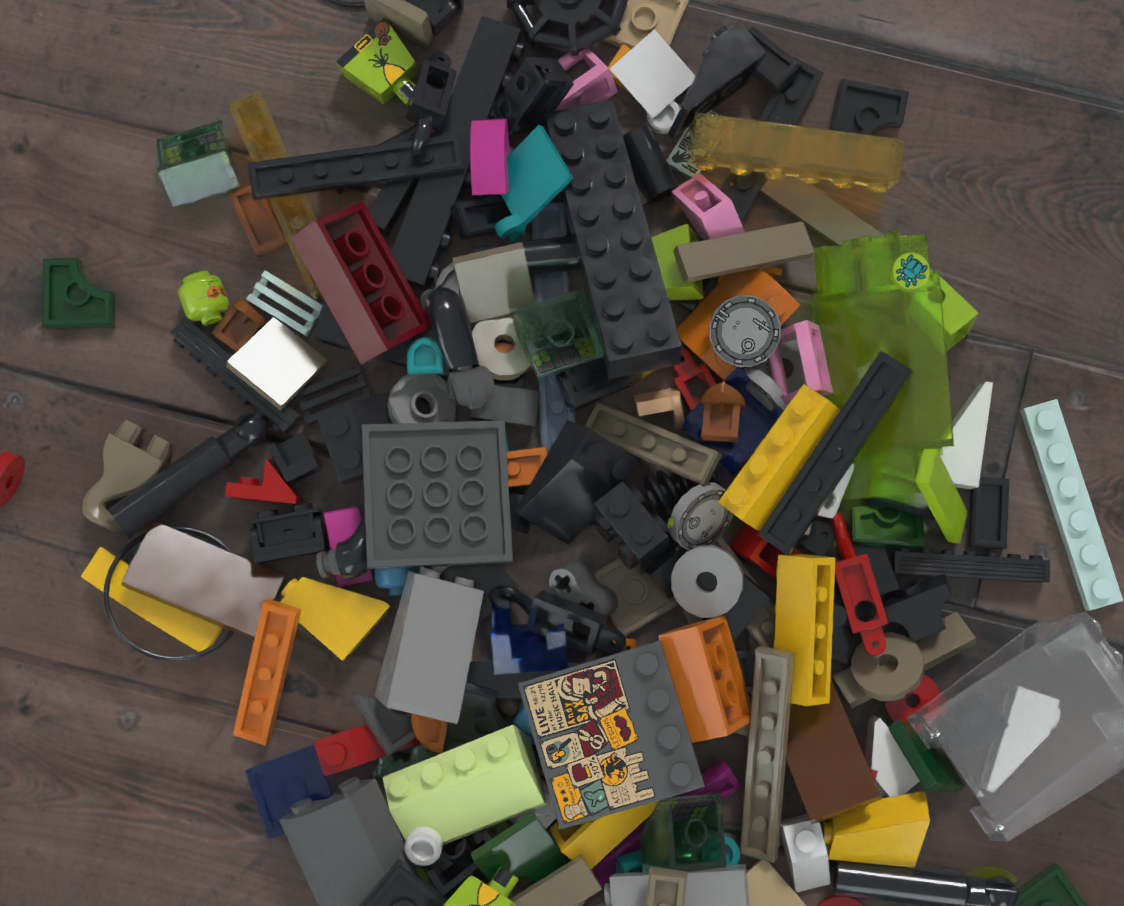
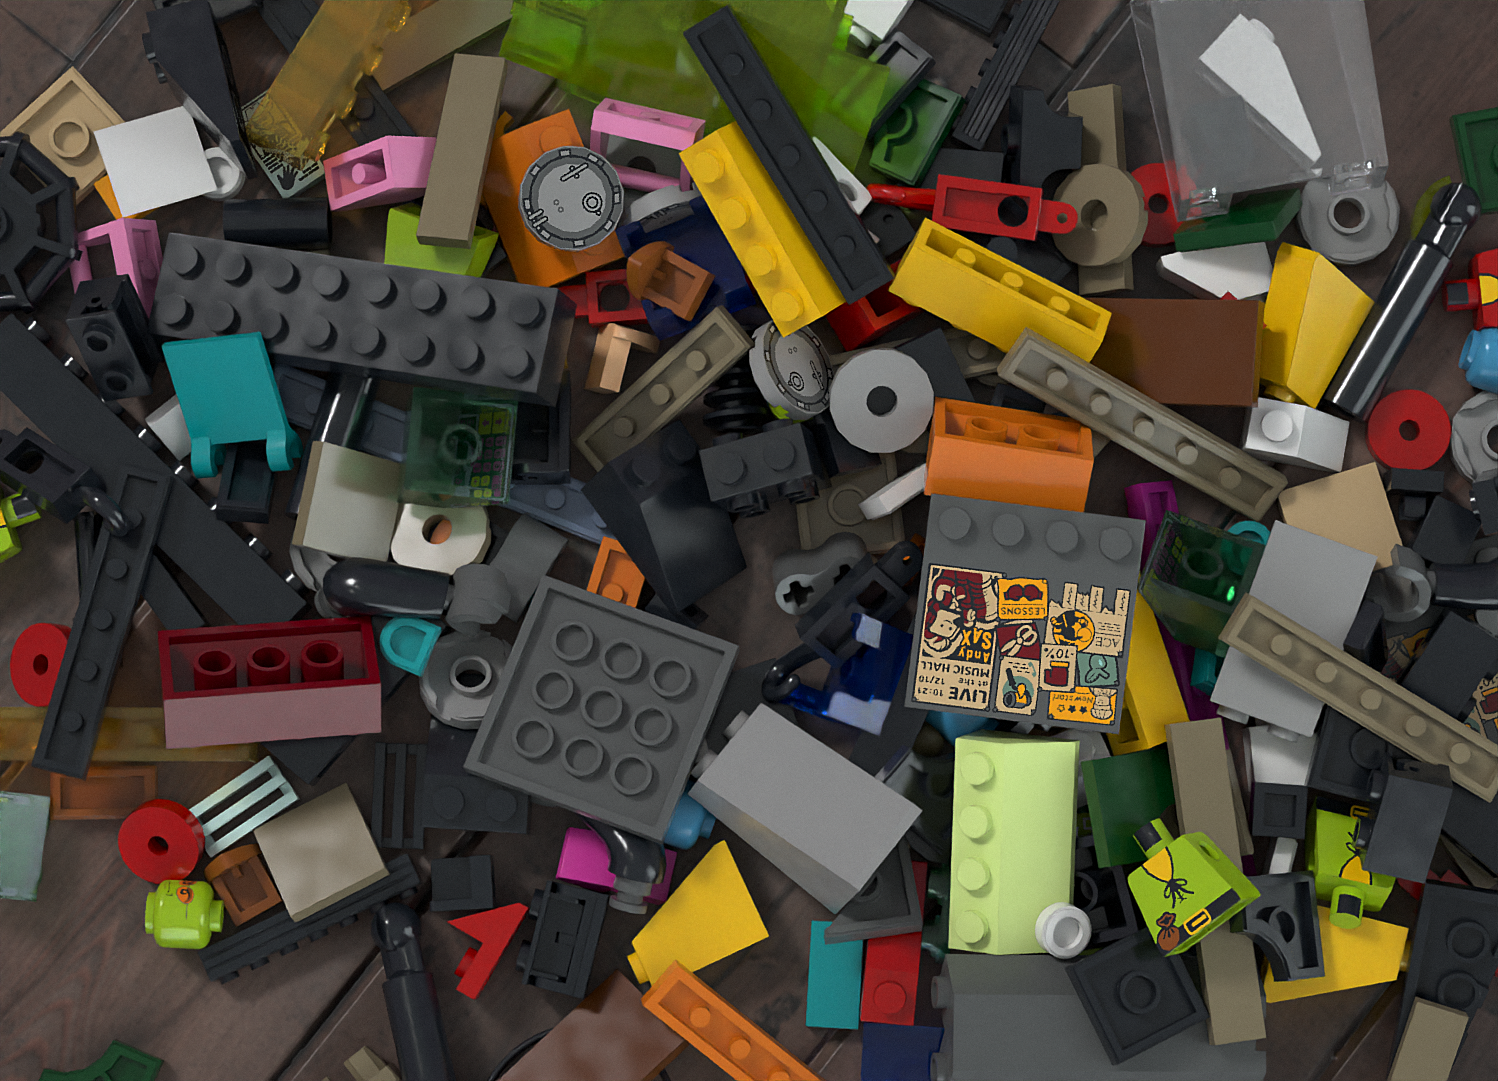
camera: 65 degrees left, 0 degrees up
(254, 269) = (173, 824): none -> red piece
(318, 140) = (37, 661): none -> red piece
(334, 712) = (833, 981): none -> teal tile
(429, 732) = (914, 858): orange tile -> none
(489, 156) = (172, 433): dark pink slope -> none
(653, 616) = (895, 493): none -> white tile
(941, 495) = (906, 42): lime tile -> none
(942, 834) = (1347, 245): none -> light grey tile

